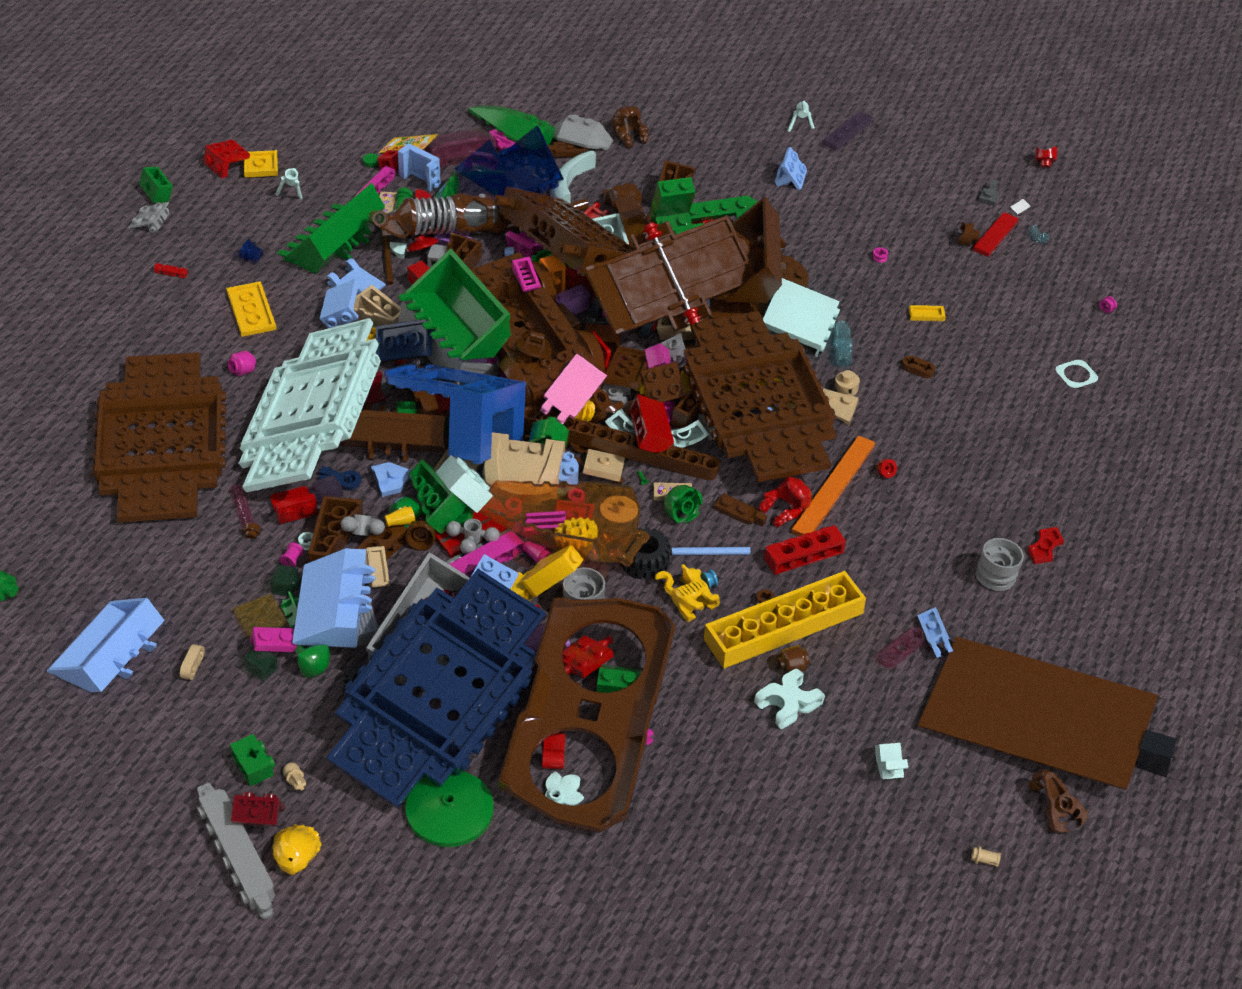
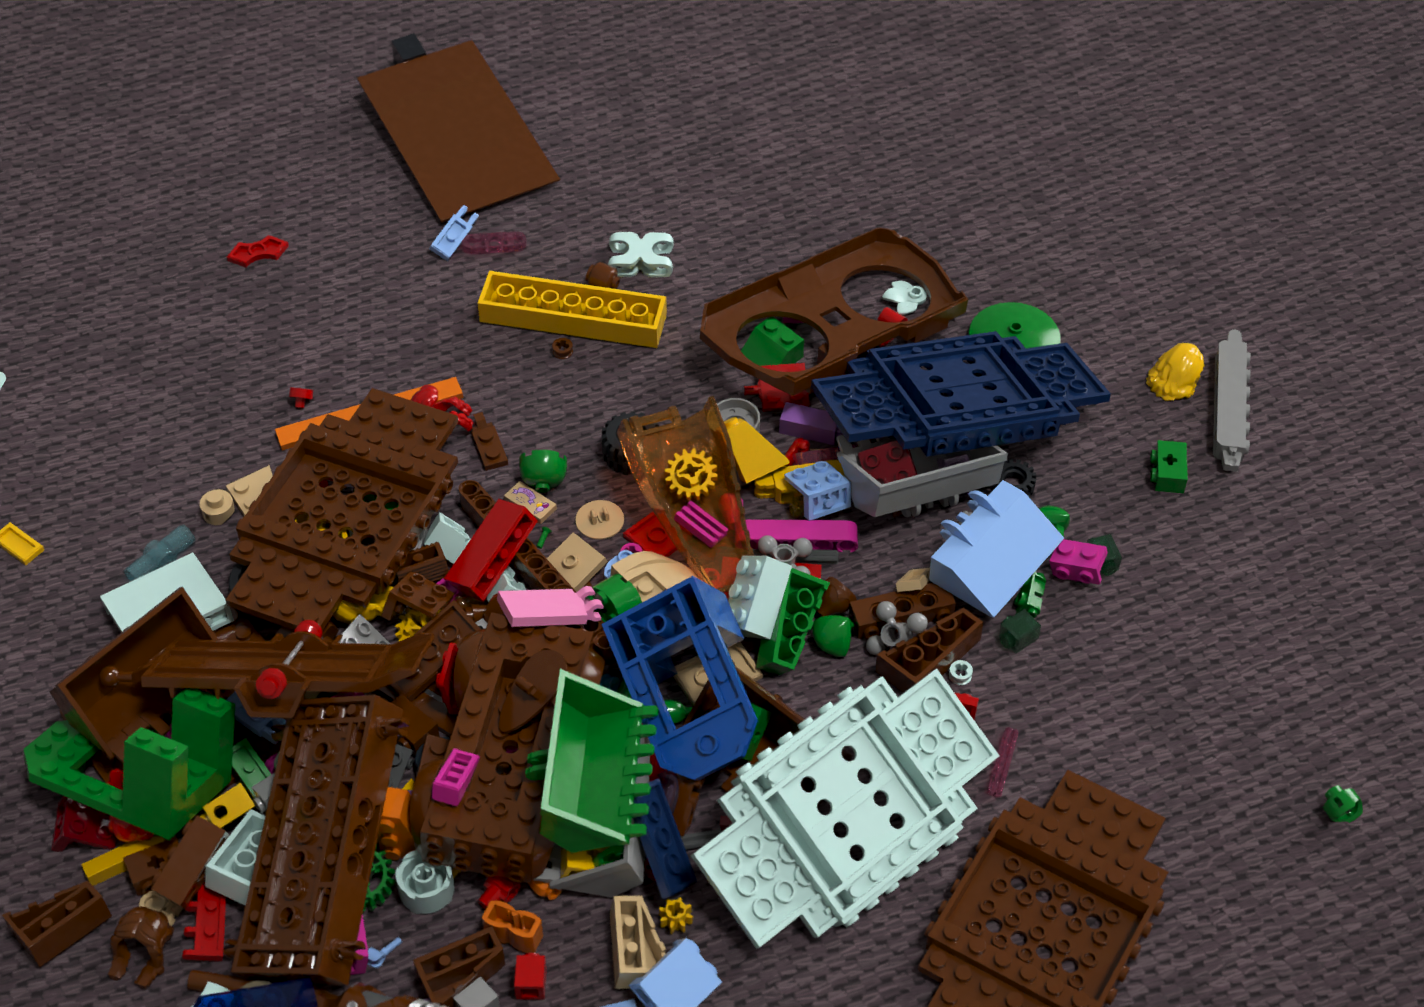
camera: 140 degrees left, 5 degrees up
(108, 644) = (1255, 669): light blue piece -> none
(192, 661) = (1172, 598): tan beam -> none
(241, 363) = (870, 978): dark pink head -> none
(251, 530) = (1015, 717): reddish brown plate -> none
(256, 810) = (1193, 409): dark red bracket -> none
(260, 613) = (1068, 616): clear yellow tile -> none
(290, 557) = (991, 660): dark pink bush -> none
(294, 776) = (1136, 445): tan axle -> none
(390, 478) = (808, 695): light blue plate -> none
(402, 516) = (852, 607): yellow cone -> none
(657, 356) = (388, 634): dark pink brick -> none
(691, 595) = (626, 385): yellow animal -> none
(710, 578) = (594, 390): dark azure bush -> none
(711, 551) = (560, 422): light blue piece -> none
(804, 549) = (477, 363): red brick -> none
(890, 760) = (618, 164): light aqua brick -> none
(918, 366) = (123, 483): reddish brown beam -> none
(985, 856) = (624, 81): tan pin -> none
(999, 564) = (331, 241): light grey wheel -> none
(1059, 800) = (523, 70): reddish brown animal -> none

